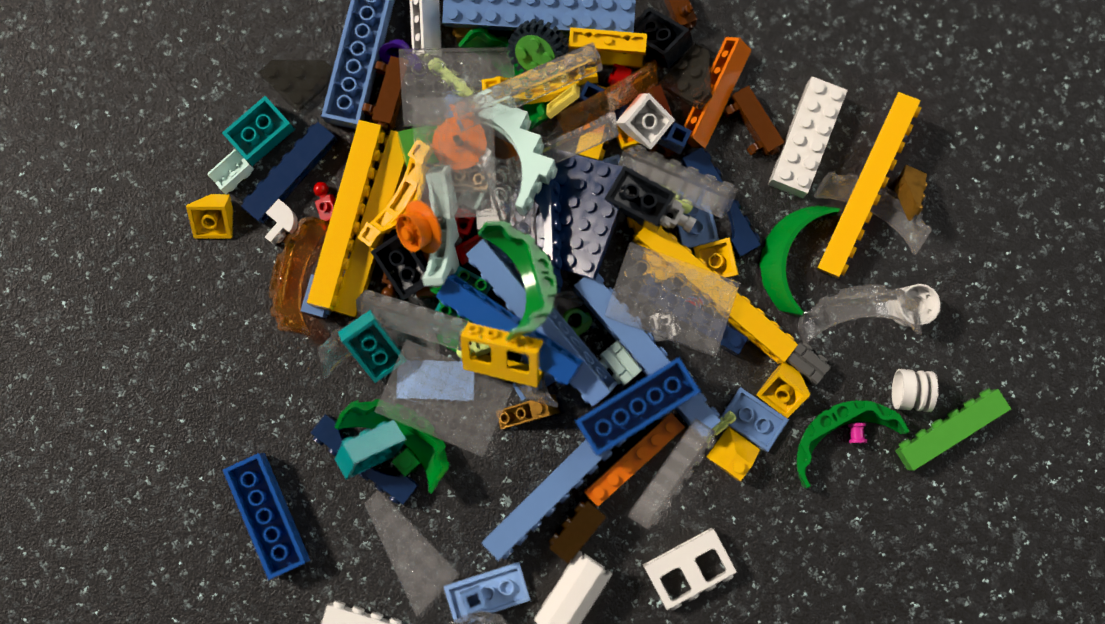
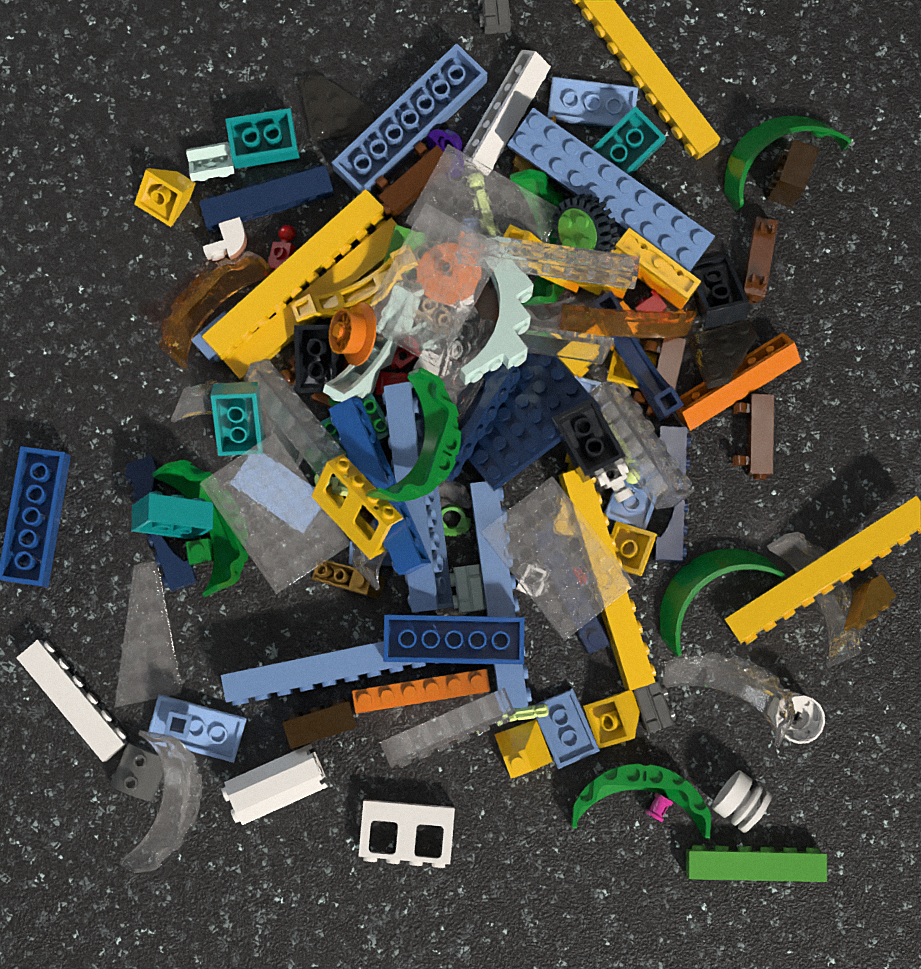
camera: 30 degrees right, 0 degrees up
(563, 100) = (576, 295): light yellow tile -> none
(645, 120) = (644, 366): white slope -> none
(807, 137) = (800, 483): white brick -> none

